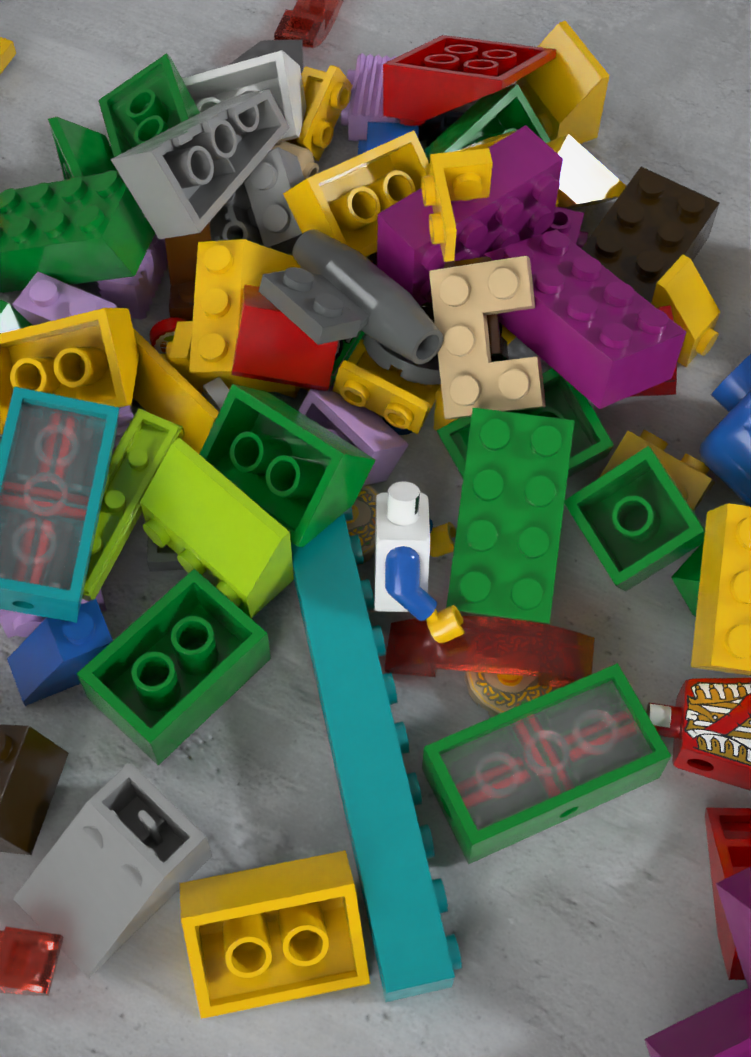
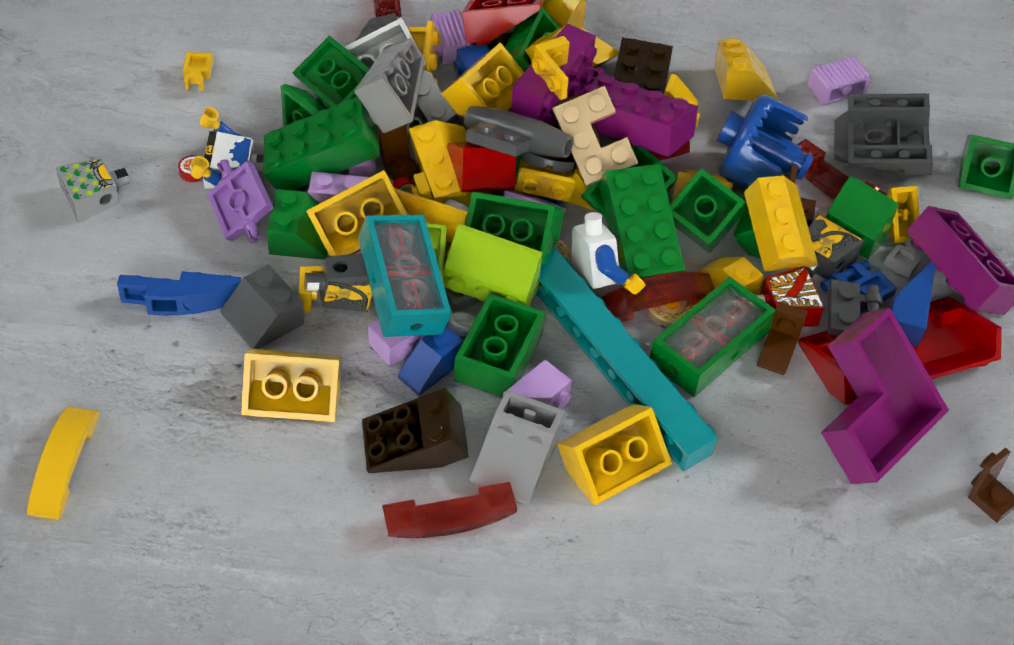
camera: 25 degrees left, 10 degrees down
(141, 595) = (460, 323): none -> white tile
(204, 769) = (545, 385): none -> lavender slope
(641, 652) = (737, 268): none -> yellow slope
(668, 808) = (782, 338): none -> reddish brown bracket

